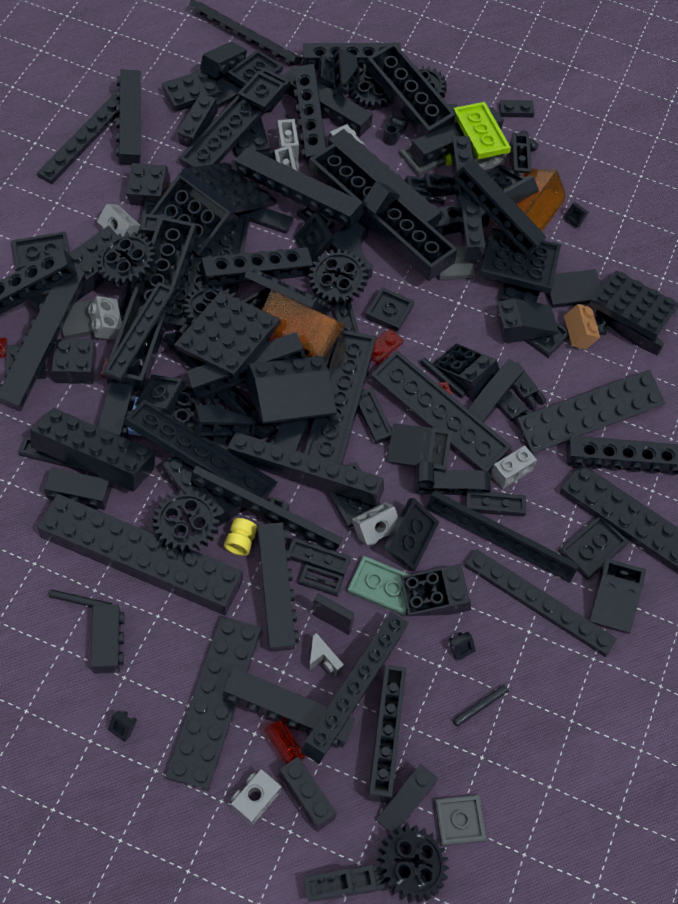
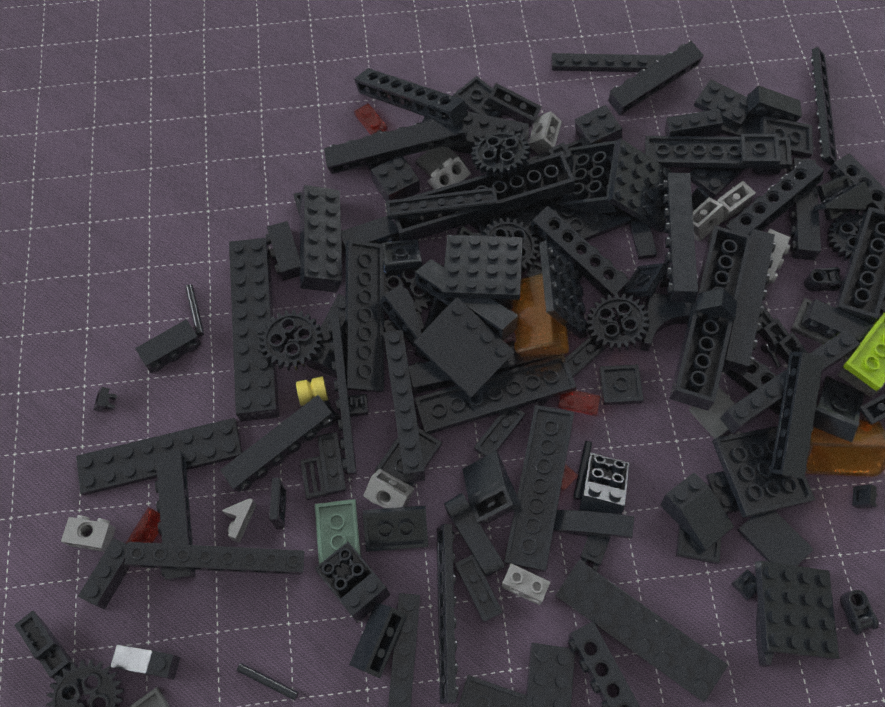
camera: 65 degrees right, 5 degrees up
(73, 228) = (512, 105): none -> black brick
(387, 734) = (191, 611): black brick -> none
(462, 645) = (314, 633): black tile -> none
(497, 597) = (377, 640): none -> black brick
(526, 389) = (625, 550): black hinge -> none
(582, 326) = (730, 569): medium nougat brick -> none
(653, 270) = (858, 613): none -> black piece

